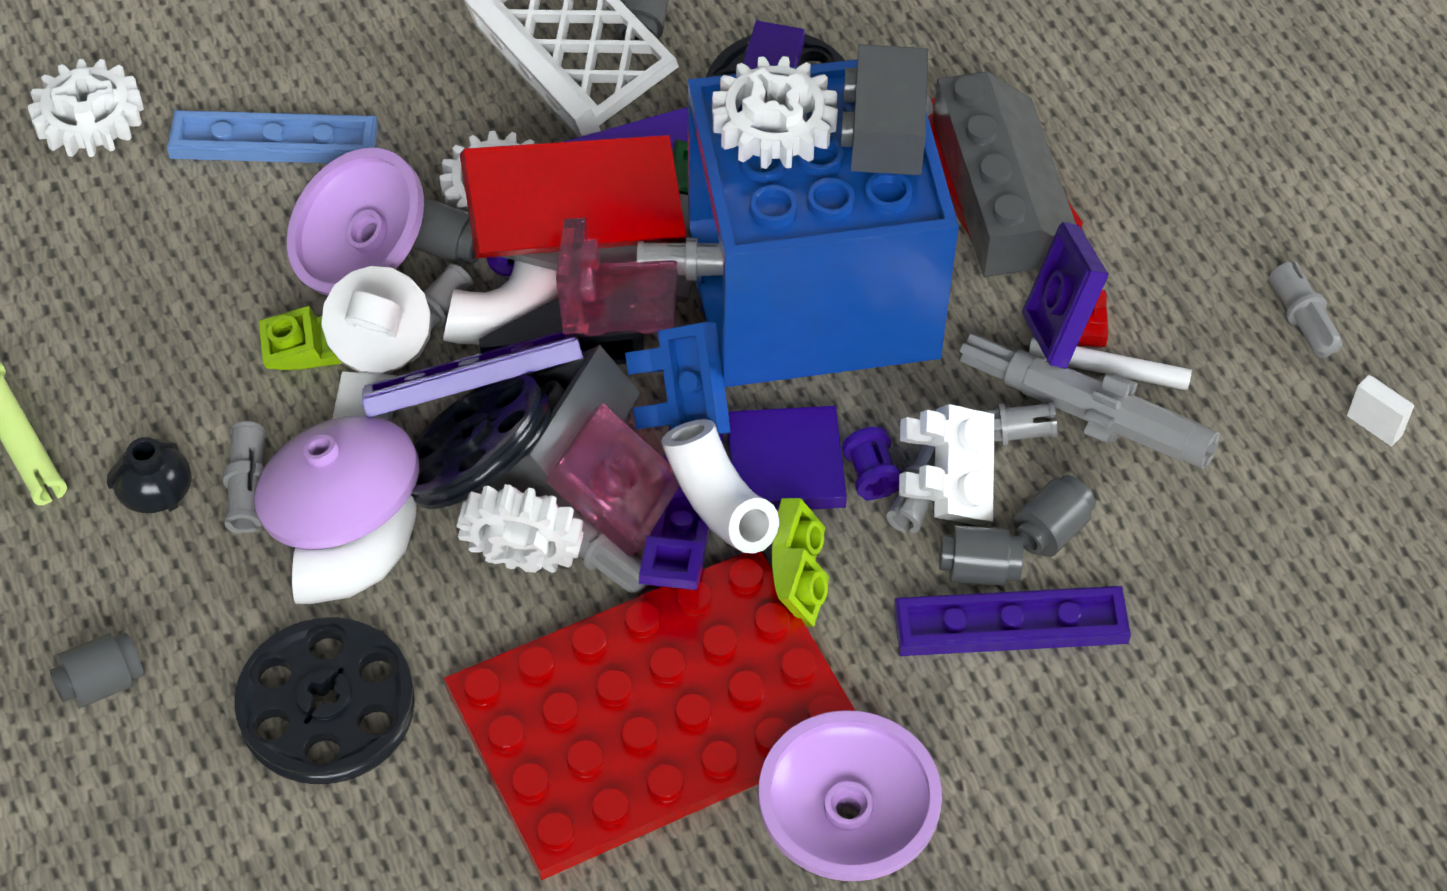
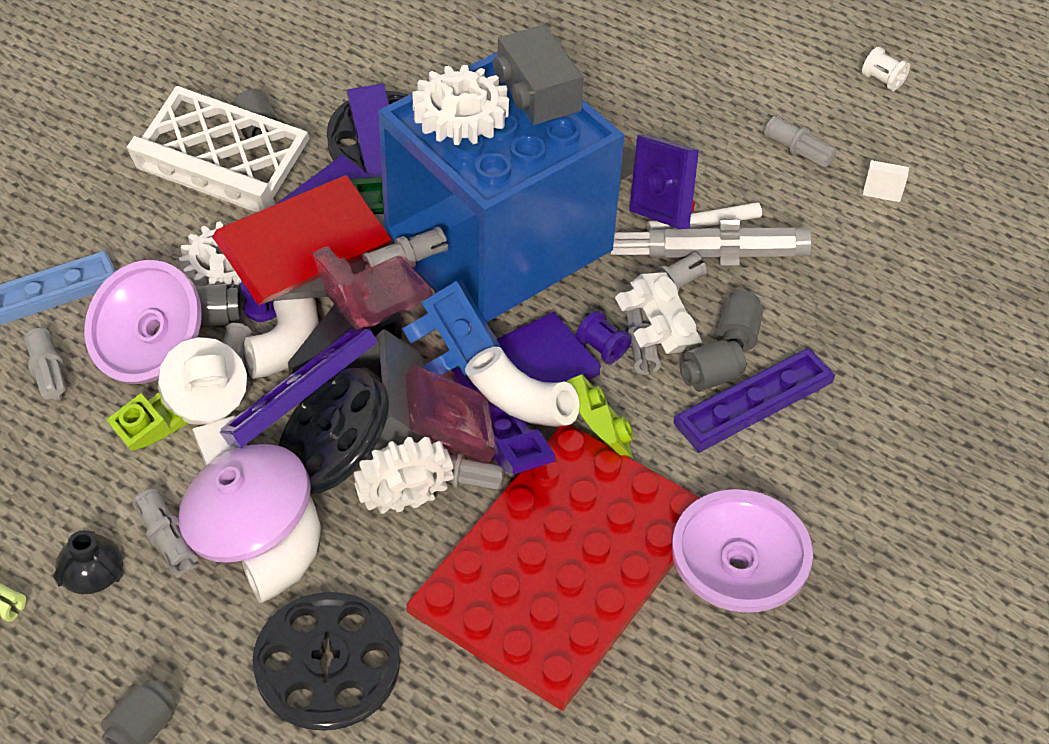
camera: 30 degrees left, 5 degrees down
(234, 227) = (45, 363): none -> light grey axle

